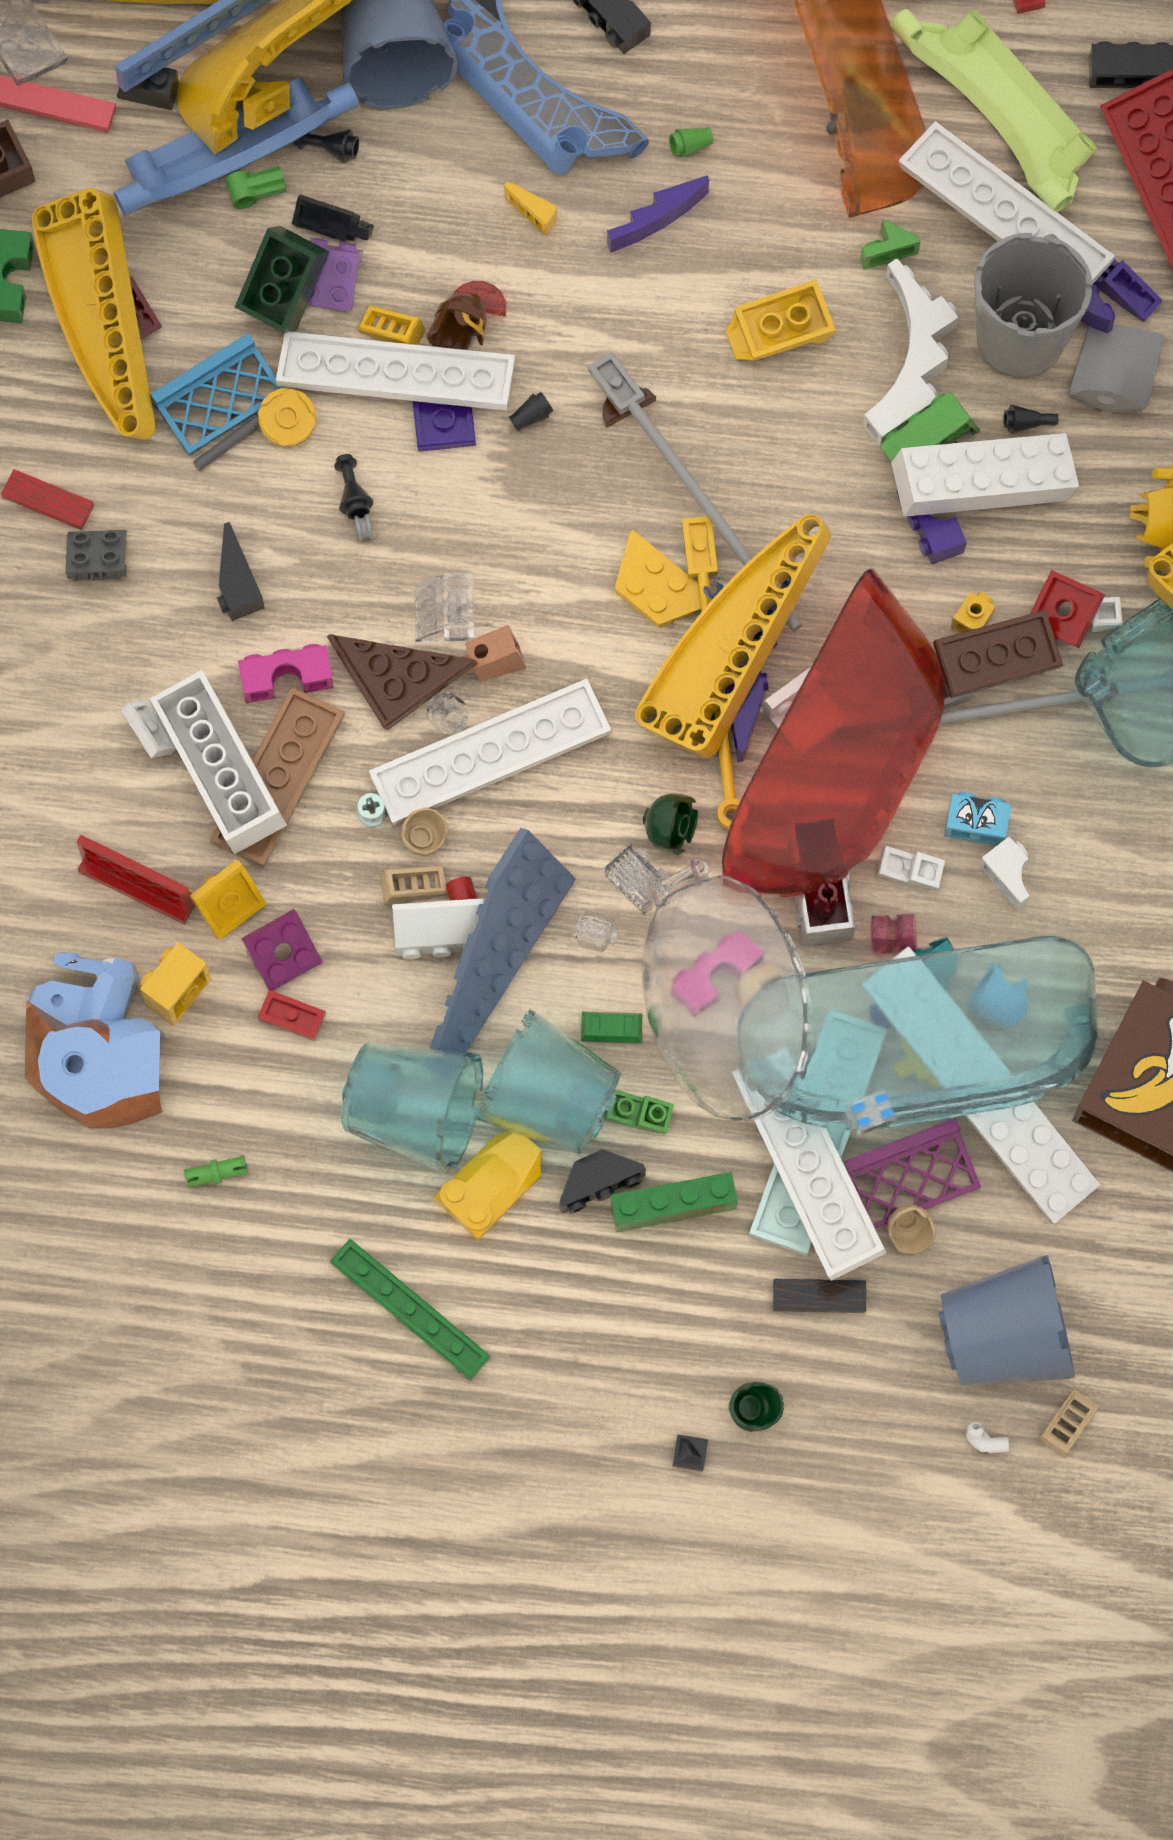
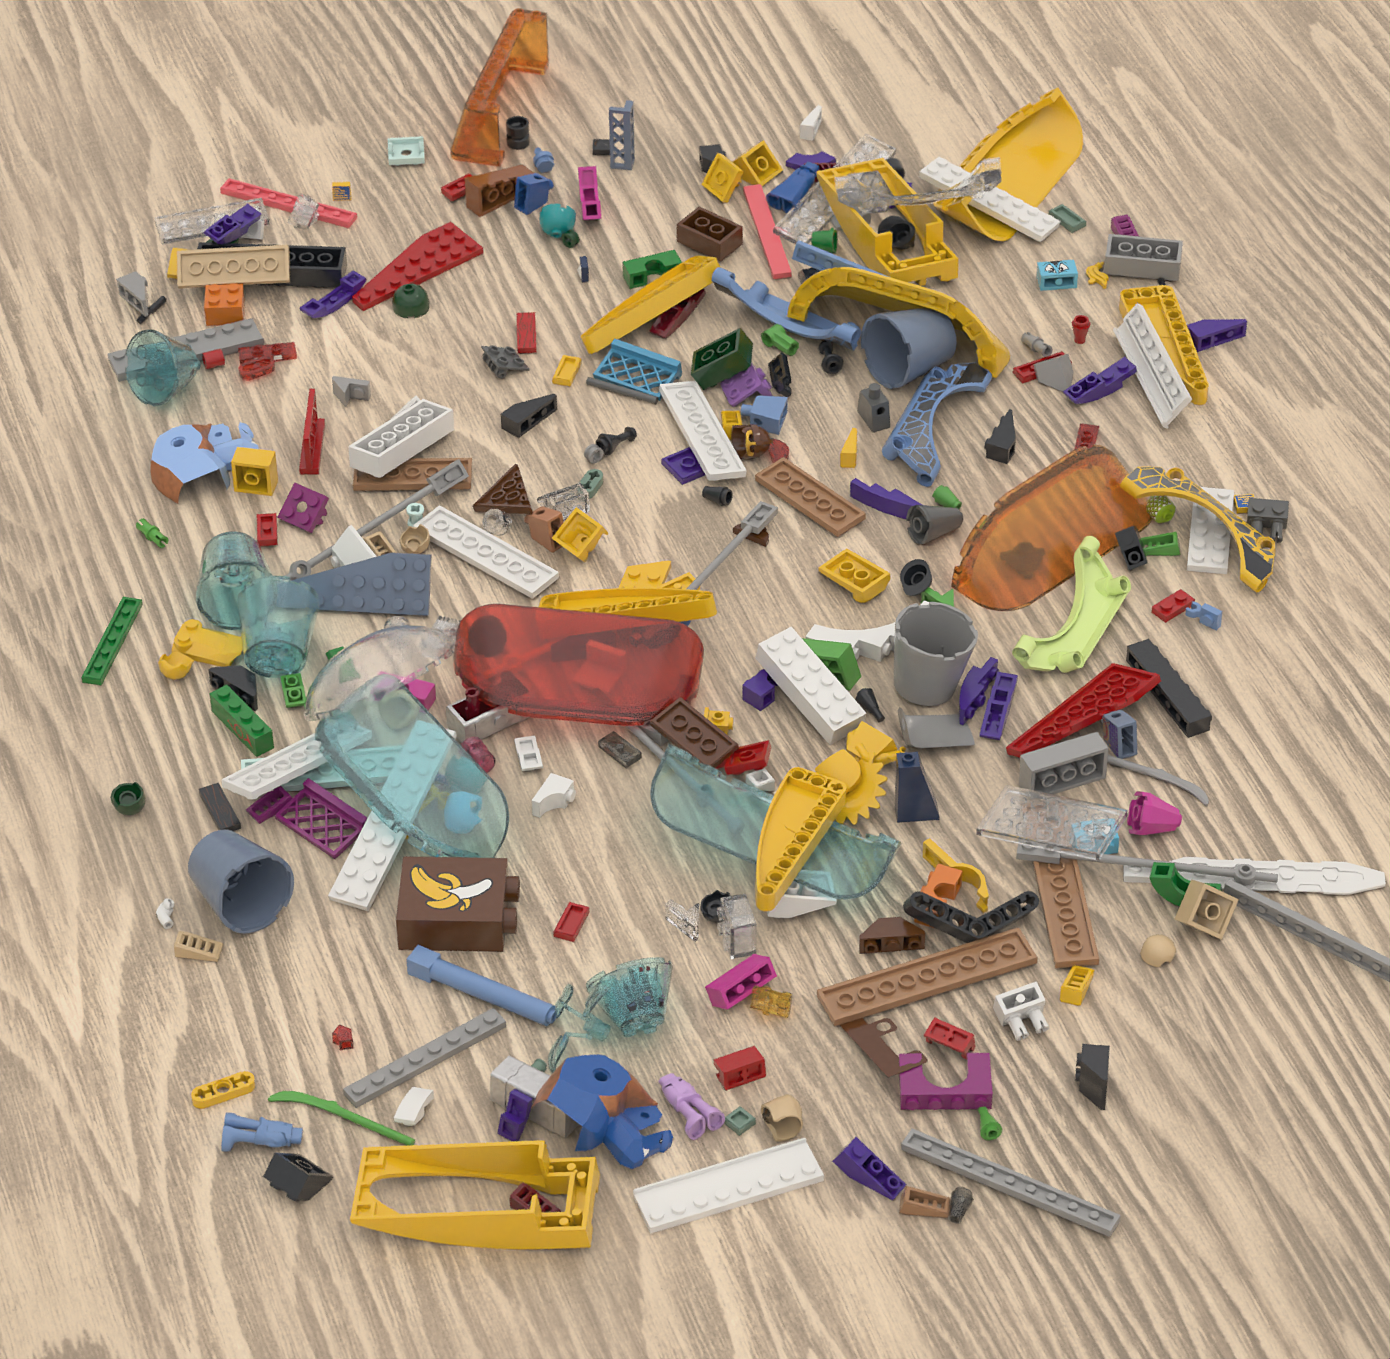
camera: 65 degrees right, 30 degrees down
(45, 789) = (349, 388): none -> light grey slope
(77, 29) = (825, 240): none -> green piece
(160, 483) = (566, 370): none -> yellow tile
(228, 899) = (320, 473): yellow tile -> none
(260, 672) = (488, 461): dark pink arch -> none
(265, 102) = (826, 312): yellow slope -> none
(286, 417) = (642, 401): yellow tile -> none
(336, 754) = (437, 483): none -> light grey bar
(402, 274) = (767, 412): none -> medium blue torso
(423, 555) = (593, 480): none -> sand green beam
(472, 140) = (874, 408): none -> dark grey torso
(515, 1243) = (175, 665): none -> yellow hair
(545, 621) = (579, 534): none -> yellow brick
(596, 301) = (810, 496): none -> medium nougat plate
(690, 1452) = (85, 786): black tile -> none
(738, 182) = (932, 522): none -> dark grey cone
(838, 253) = (915, 577): none -> black piece
(869, 1112) = (331, 743): clear brick -> none
(911, 1229) = (284, 827): tan hair -> none
(961, 753) = (619, 749): none -> clear smoke plate
(977, 819) = (579, 767): medium azure brick -> none
(991, 196) = (998, 635): white plate -> none
(1117, 458) = (873, 741): none -> yellow torso

